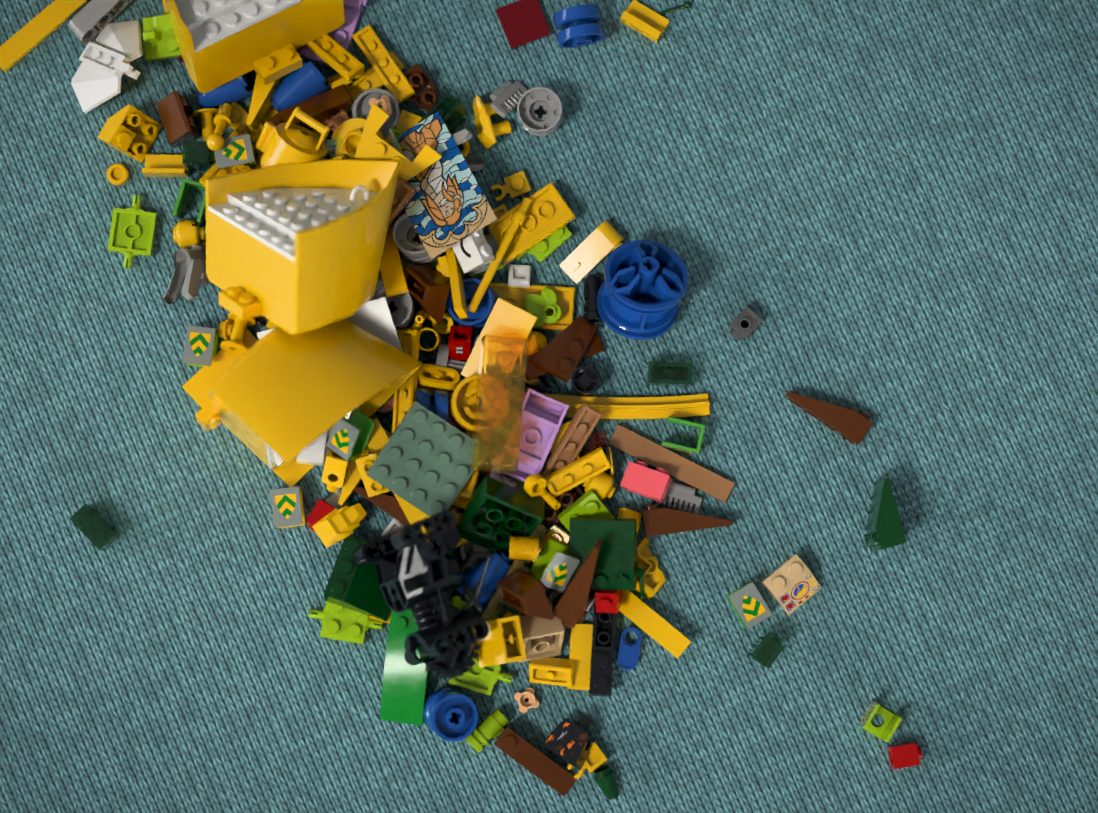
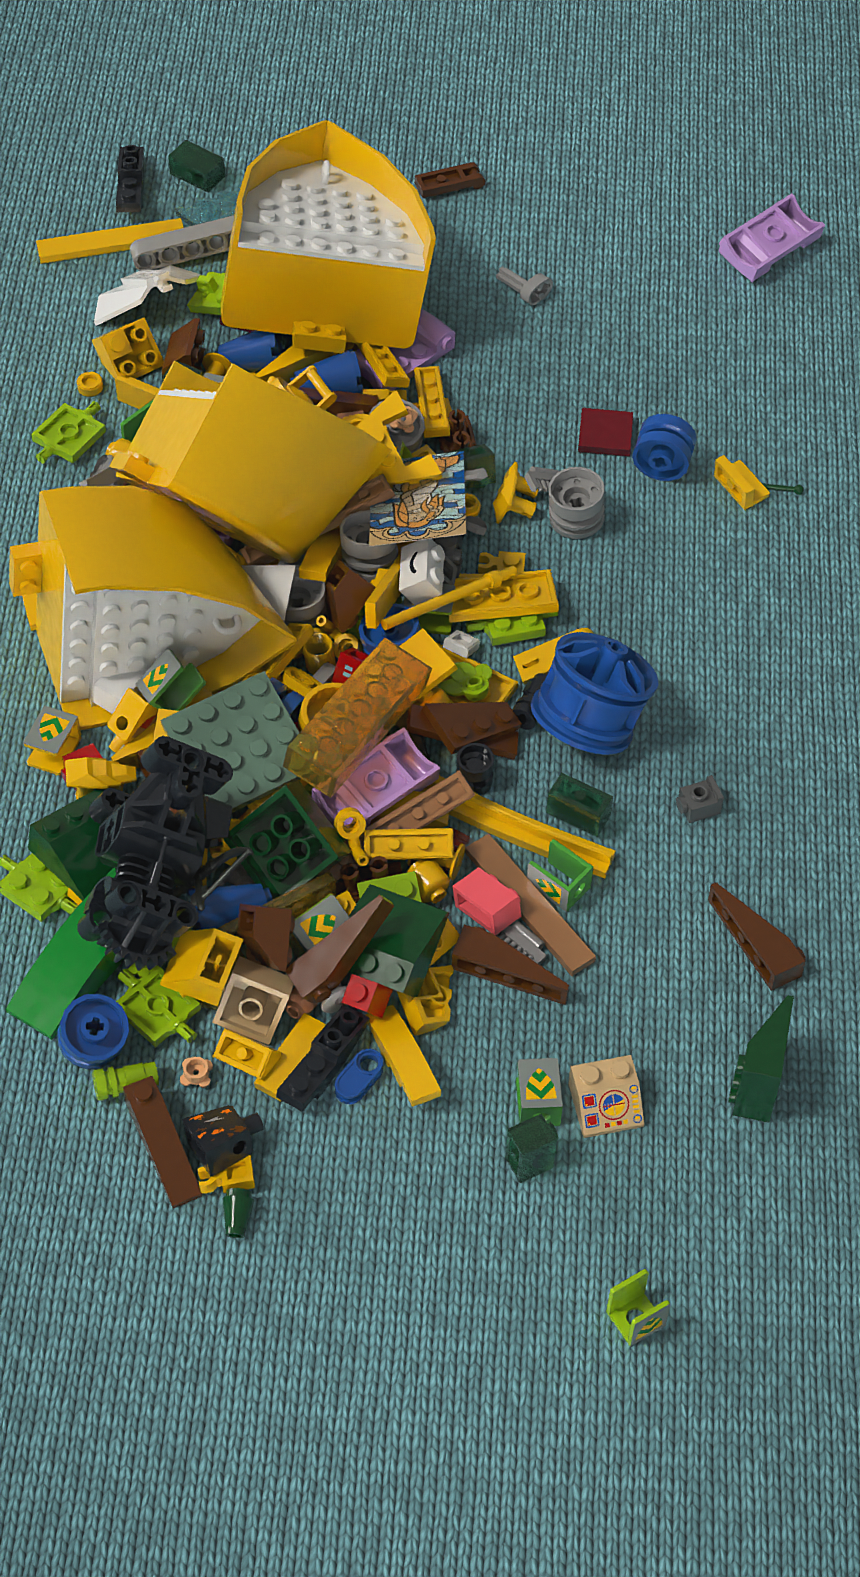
camera: 30 degrees right, 30 degrees down
(222, 121) = (209, 368): yellow pin -> none
(523, 548) = (295, 882): yellow piece -> none
(640, 572) = (421, 977): dark green hinge -> none
(904, 755) = (650, 1372): red brick -> none

